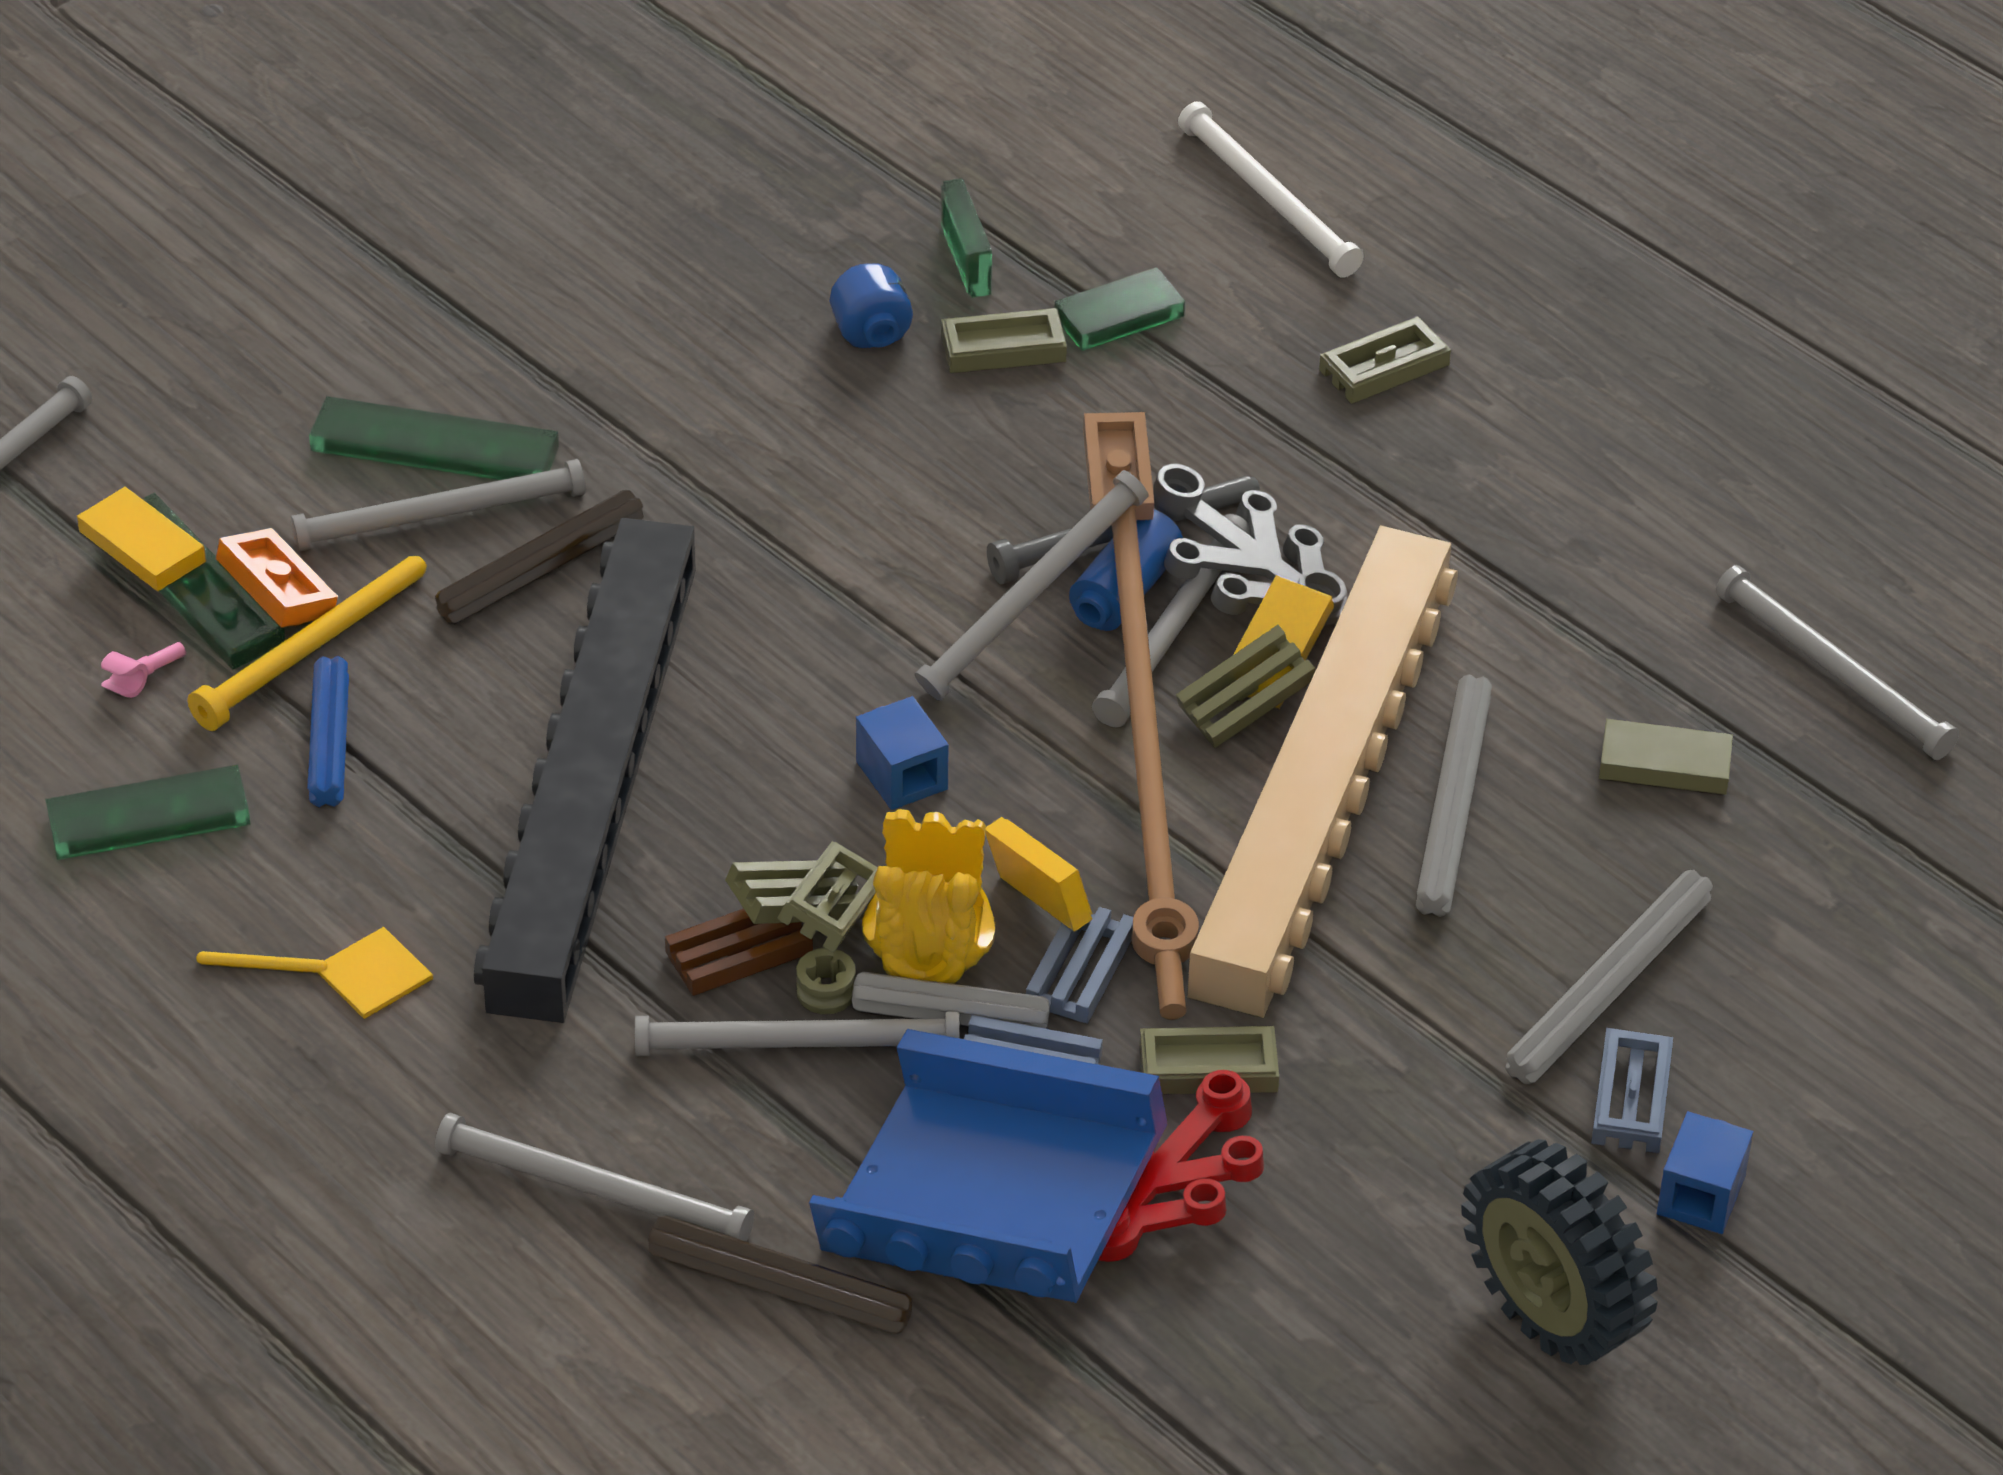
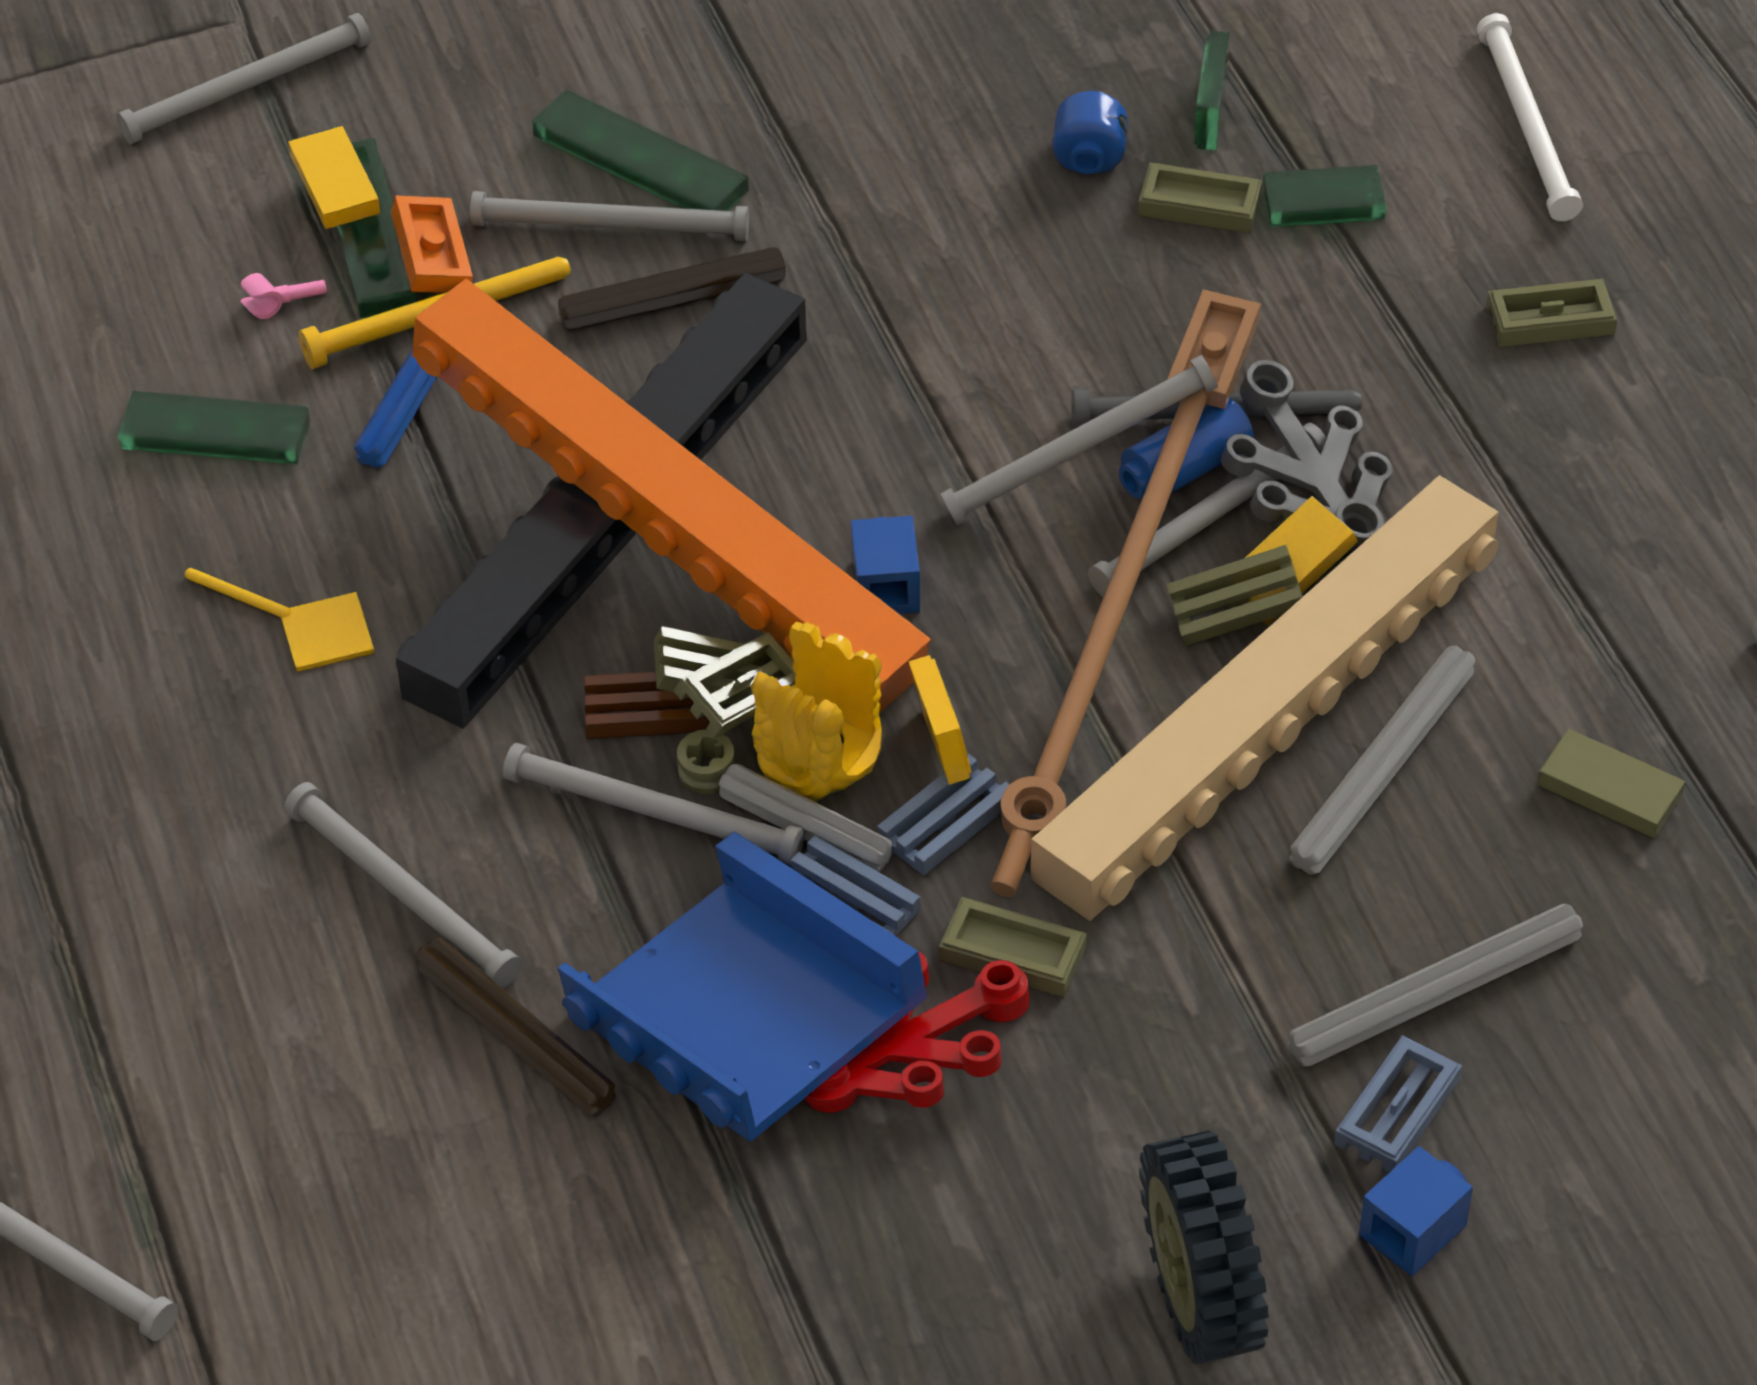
camera: 25 degrees right, 5 degrees up
(643, 727) = (654, 483): none -> orange brick

